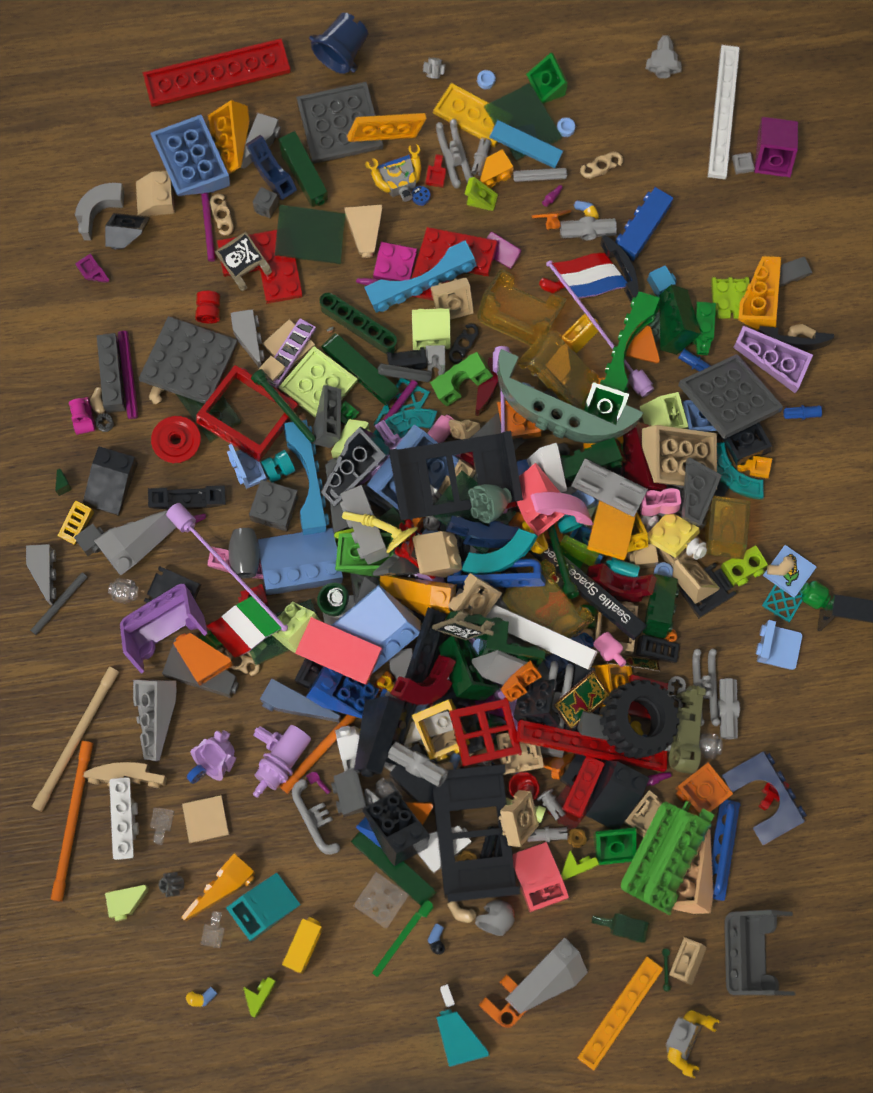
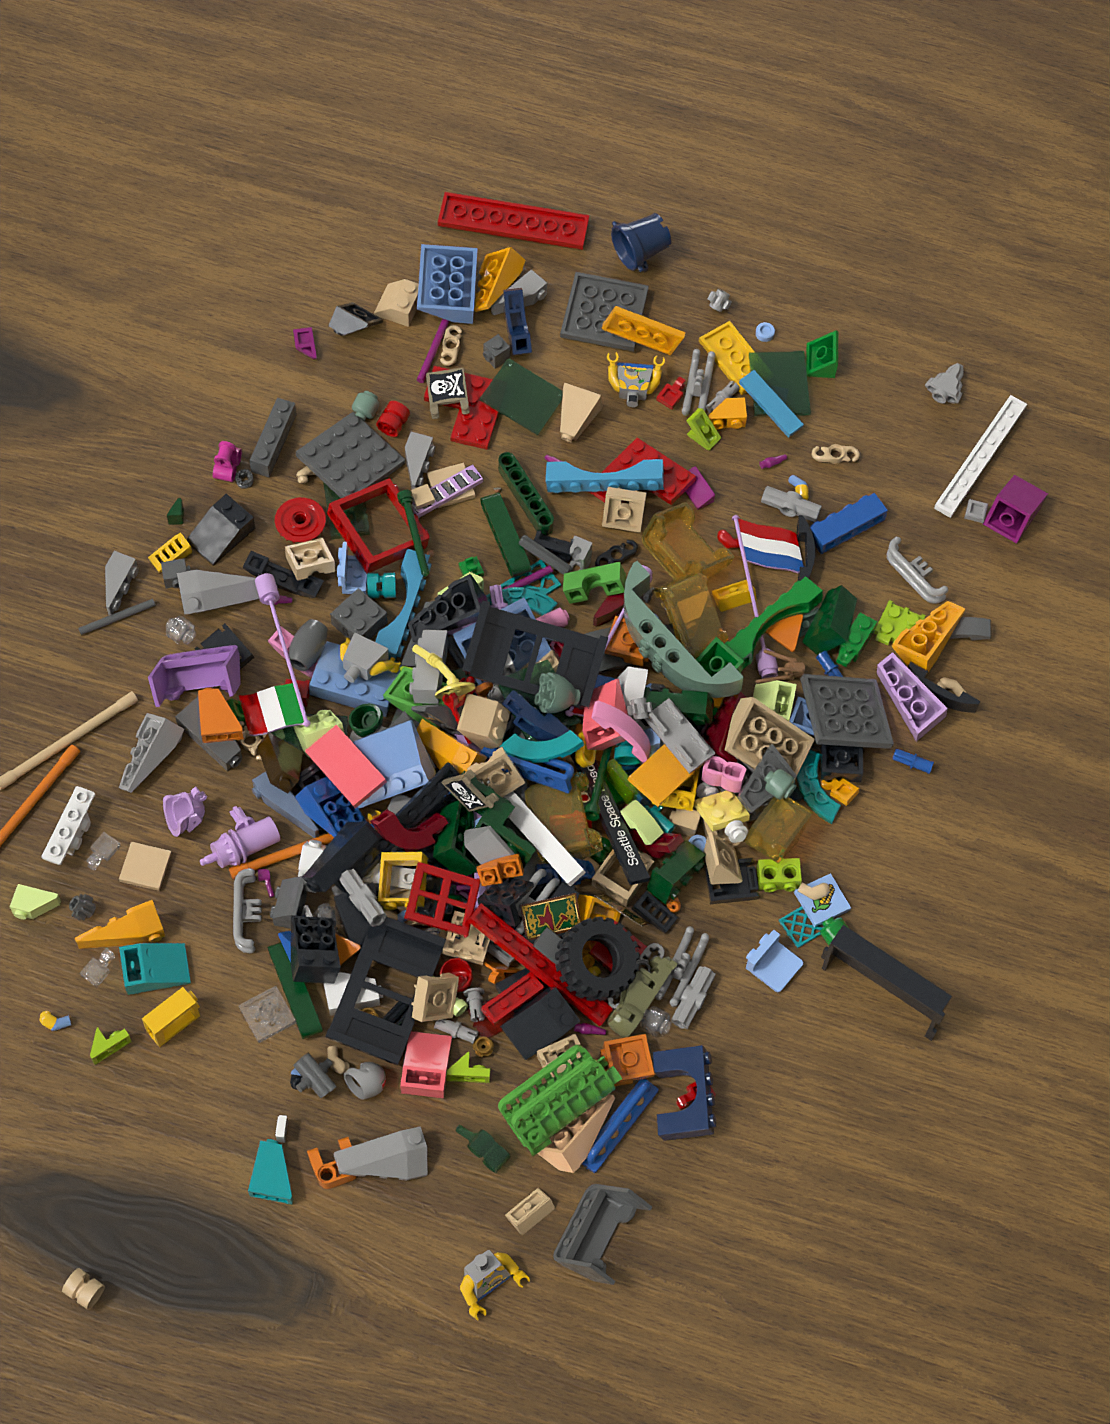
camera: 25 degrees right, 10 degrees down
(94, 201) = (341, 284): light grey arch -> none
(96, 401) = (245, 457): tan arm -> none
(127, 373) = (288, 446): magenta axle -> none
(135, 771) = (104, 792): tan slope -> none
(176, 305) = (365, 405): none -> sand green head
(196, 774) = (158, 821): blue tile -> none
(203, 466) = (309, 553): none -> tan brick
(277, 671) = (280, 762): none -> dark brown slope
(301, 543) = (365, 658): none -> light grey torso
(302, 169) = (546, 336): dark green slope -> none
(310, 375) = (459, 531): yellowish green plate -> none
(328, 417) = (450, 561): dark grey slope -> none
(394, 262) = (590, 454): dark pink plate -> none
(421, 195) = (646, 407): blue tile -> none
(423, 911) = (300, 1041): green piece -> none
(430, 327) = (590, 524): yellowish green slope -> none
(451, 936) = (314, 1075): none -> dark grey pin
(463, 429) = (569, 623): tan bracket -> none
(541, 174) = (770, 437): light grey axle -> none
(552, 219) = (760, 481): orange piece -> none
(566, 127) = (819, 406): light blue tile -> none
(566, 480) = (639, 709): none -> light grey gear
(609, 648) = (604, 883): bright pink piece -> none
(613, 577) = (642, 821): none -> yellowish green slope
(615, 846) = (514, 1067): green slope -> none
(620, 1013) = (438, 1226): light orange tile -> none
(660, 280) = (837, 576): dark azure brick -> none
(663, 378) = (791, 669): none -> medium nougat plant
(666, 987) = (512, 1194): dark green hinge -> none
(714, 490) = (779, 784): none -> sand green head
(721, 244) = (915, 574): none -> light grey piece

